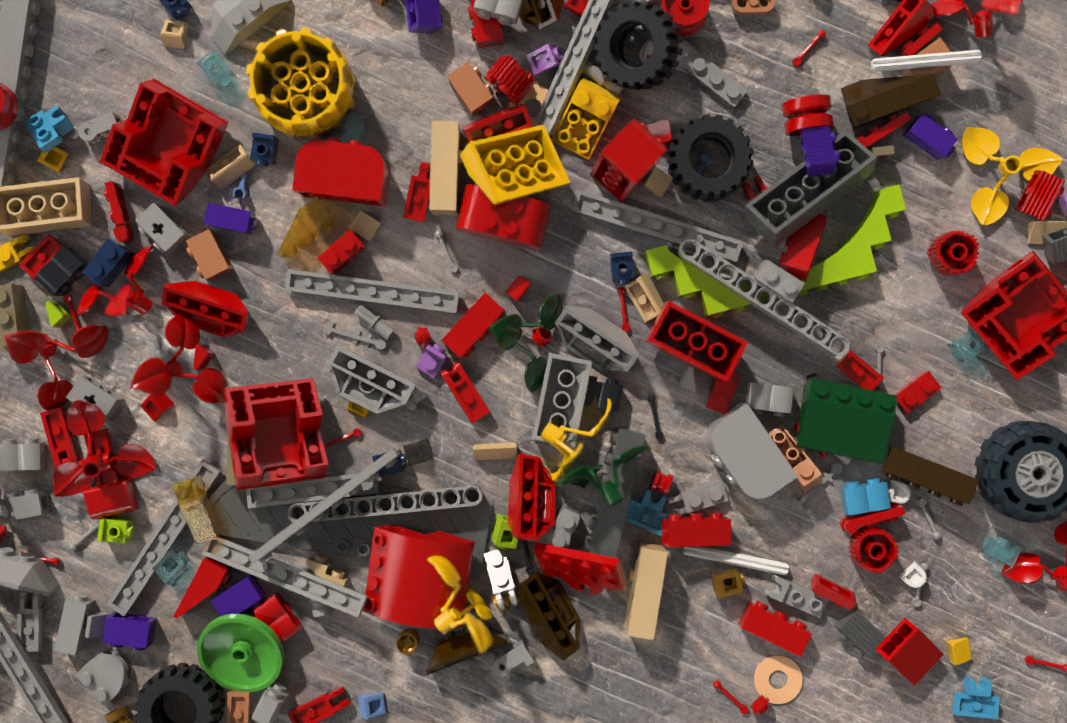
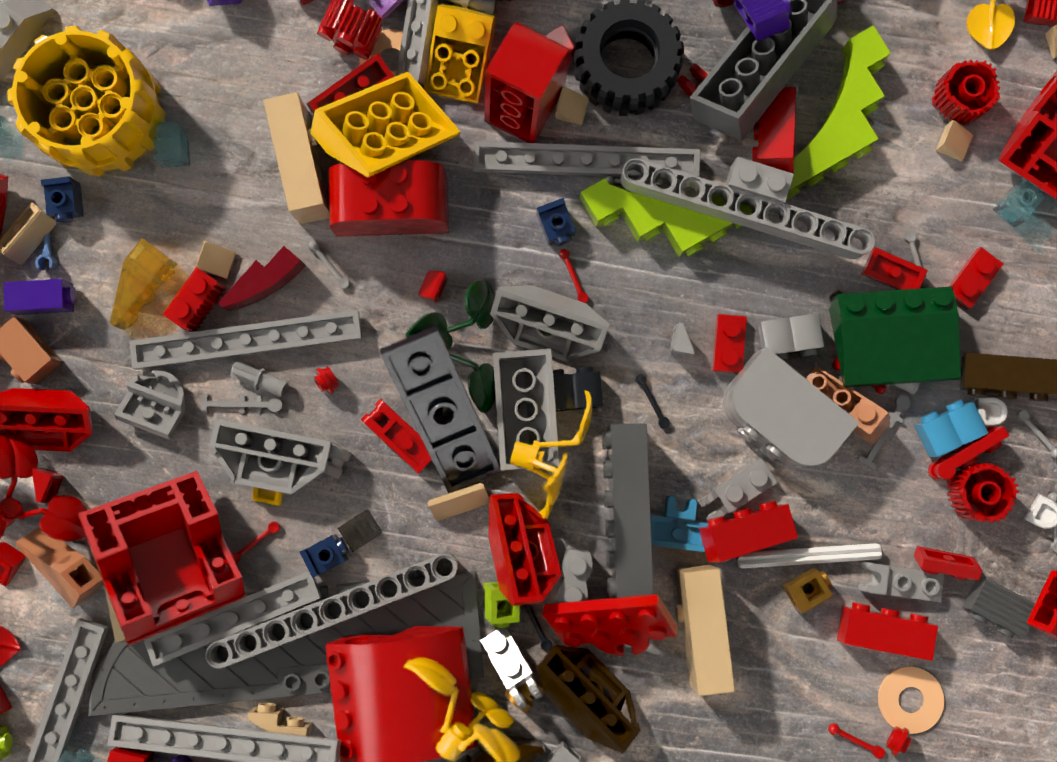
camera: 20 degrees left, 5 degrees down
(196, 508) = (82, 685): clear yellow slope -> none
(199, 419) = (61, 566): none -> nougat slope
(293, 319) = (153, 403): none -> light grey slope
(318, 513) = (244, 643): light grey plate -> none
(341, 172) = (166, 199): red brick -> none
(395, 251) = (262, 281): none -> dark red slope
(418, 195) = (274, 213): red plate -> none
(432, 360) = (347, 406): medium lavender bracket -> none
(470, 88) = (305, 54): nougat brick -> none
(473, 326) = (390, 329): red brick -> none
(501, 384) = (440, 408): none -> plate
(541, 337) = (478, 338): red plate -> none
(608, 490) = (618, 507): dark green plant -> none
(644, 297) = (597, 254): tan slope -> none
(661, 482) = (684, 482): red wheel -> none
(696, 342) = (677, 287): red brick -> none
(704, 160) = (623, 65): medium blue hand -> none
(934, 286) = (954, 141): none -> tan slope

